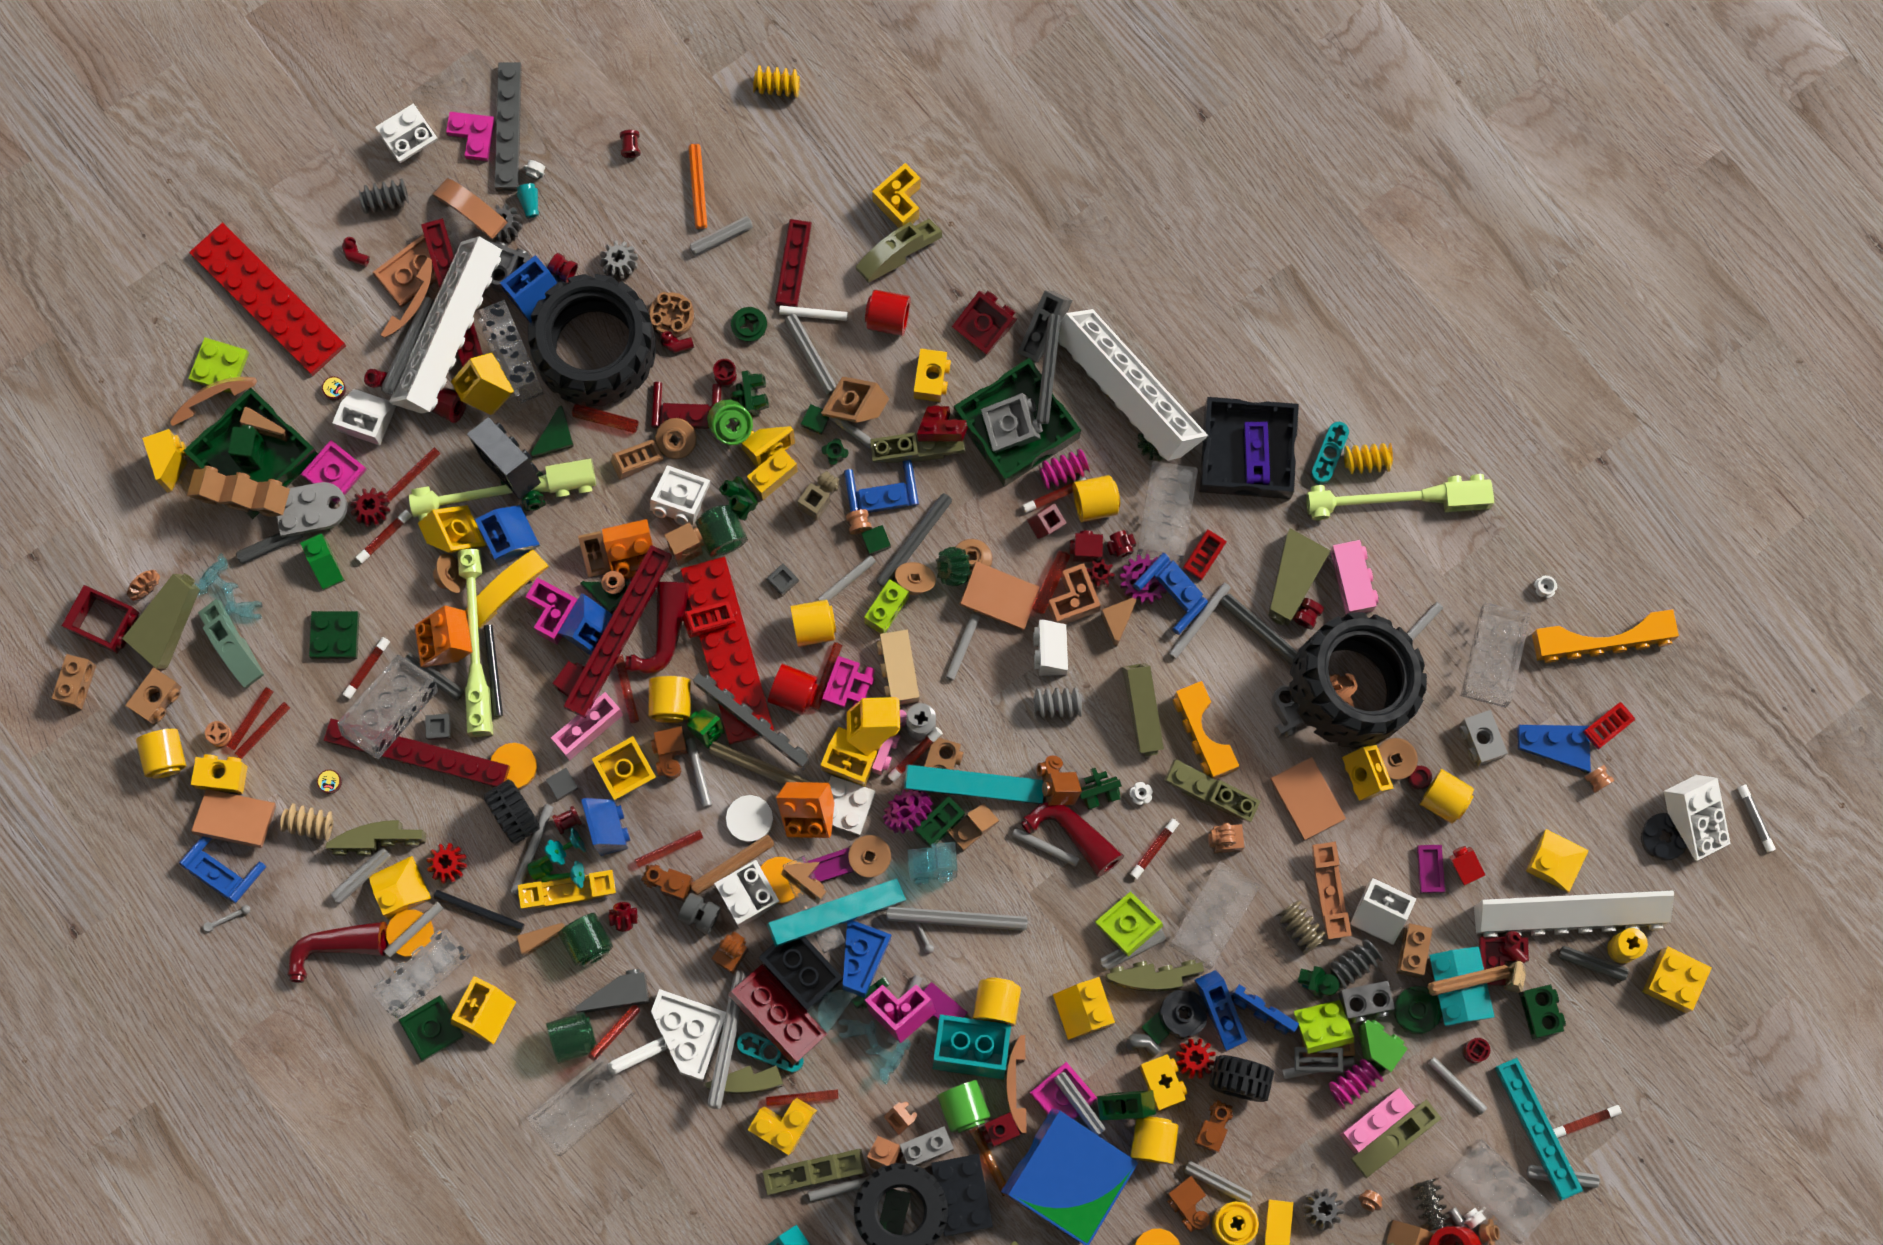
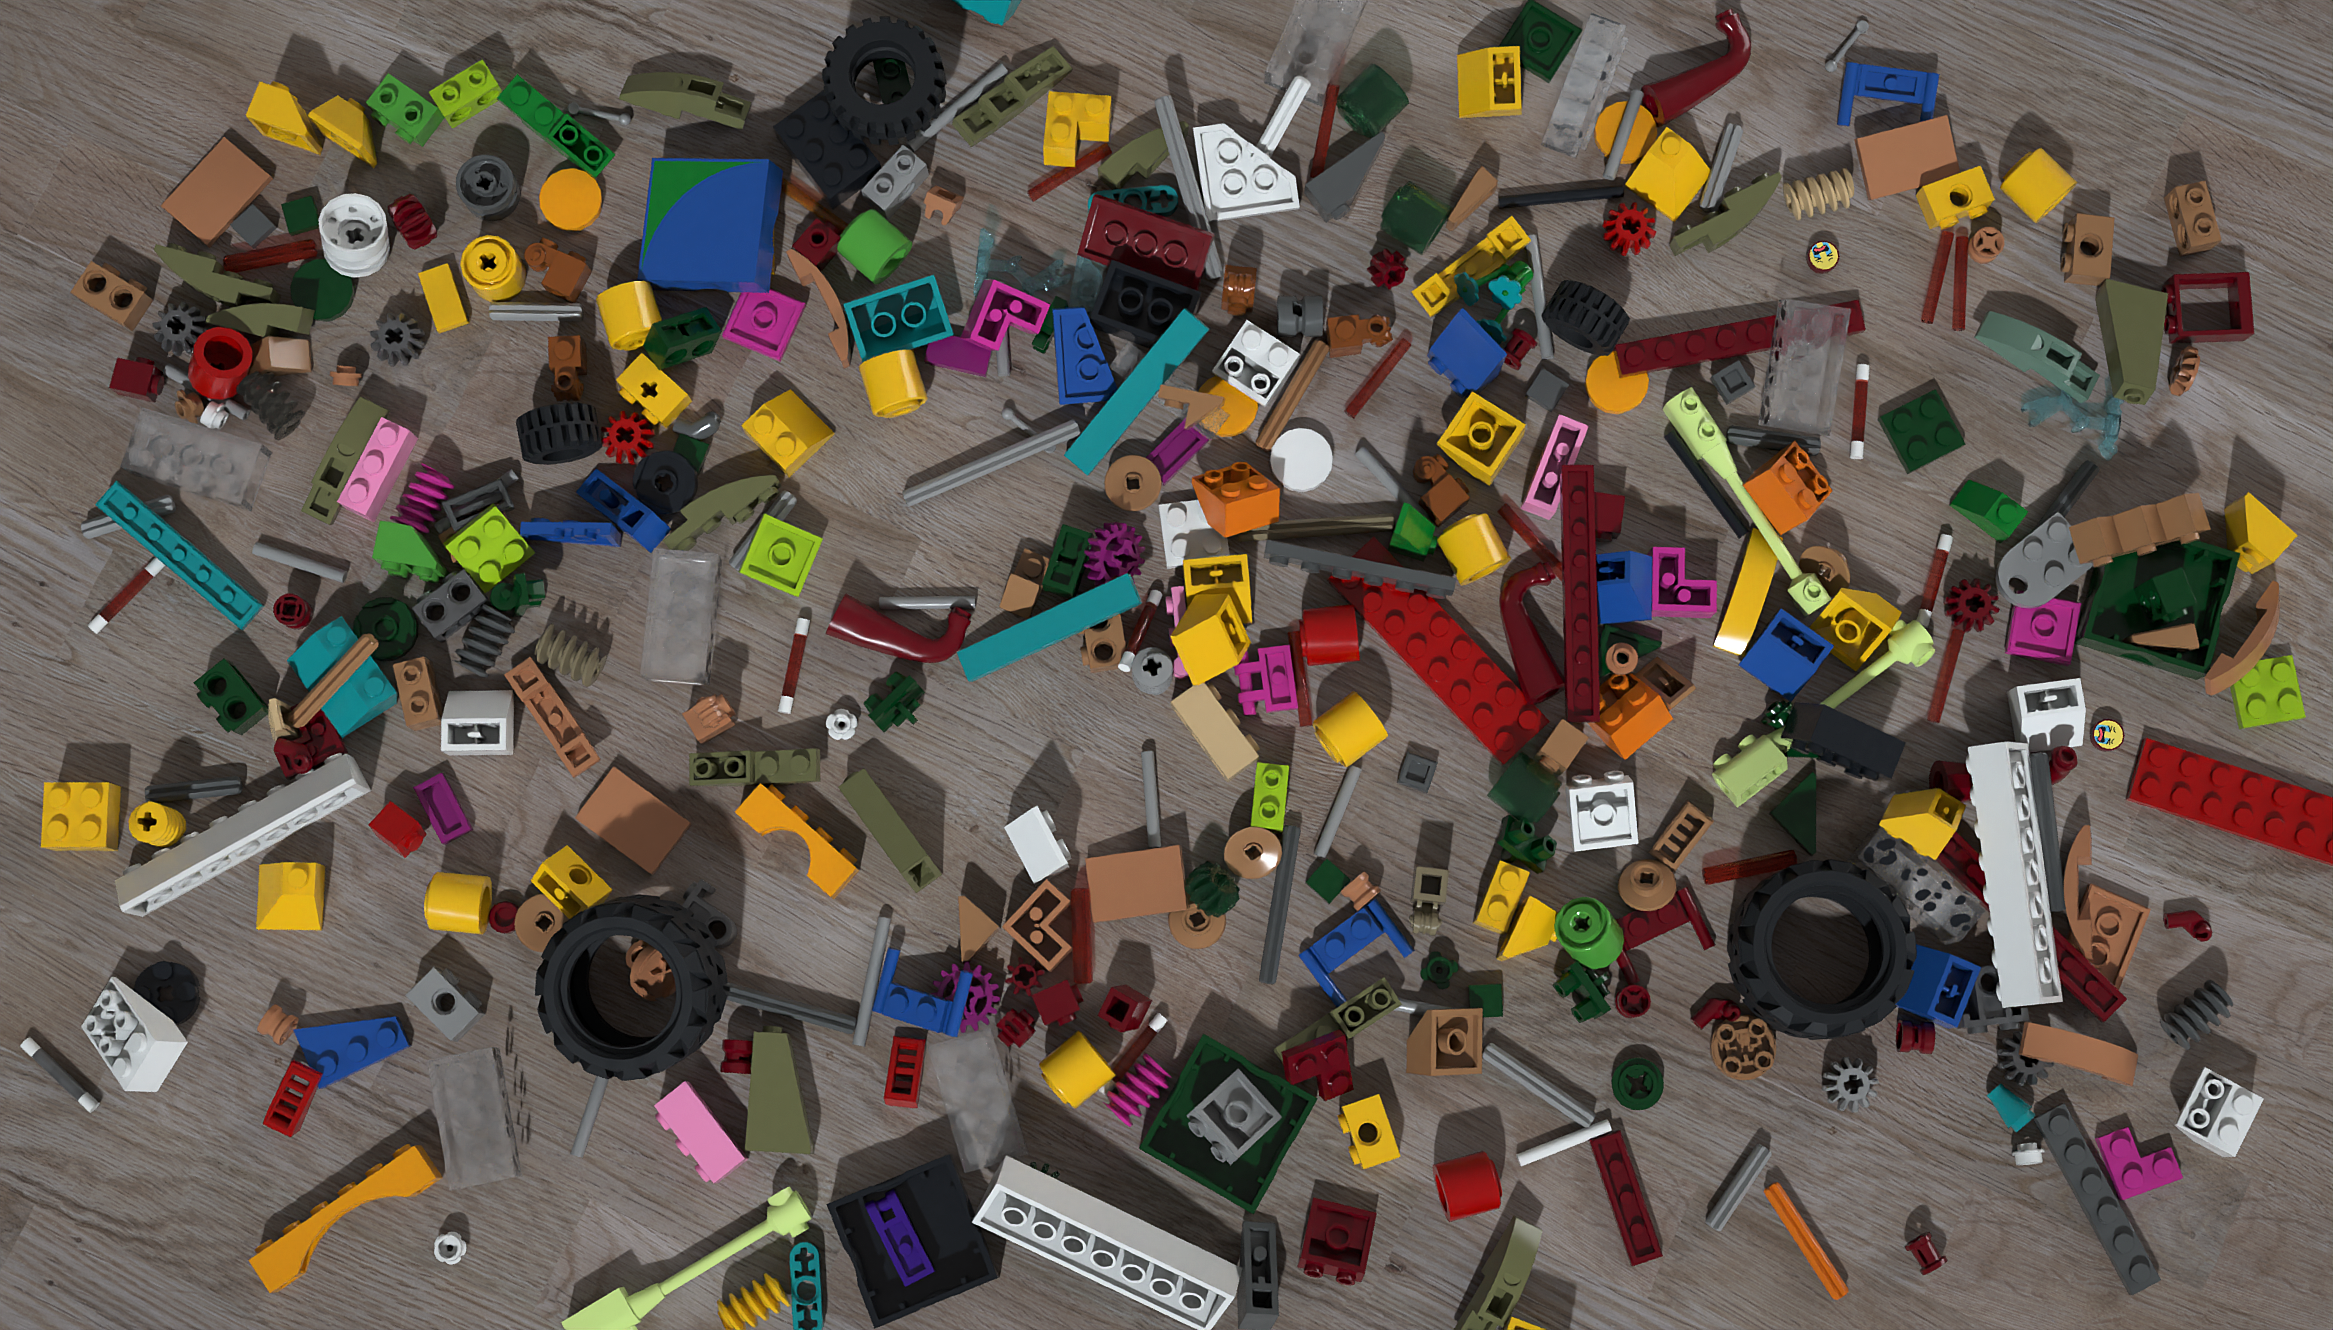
camera: 155 degrees right, 5 degrees up
(696, 614) = (1487, 679): red slope -> none
(884, 1153) = (938, 147): nougat brick -> none
(933, 863) = (1047, 511): clear light blue brick -> none
(1048, 369) = (1220, 1209): dark grey axle -> none
(1057, 702) = (998, 783): light grey piece -> none
(1058, 787) = (947, 676): dark orange brick -> none
(1079, 1103) = (739, 315): light grey axle -> none

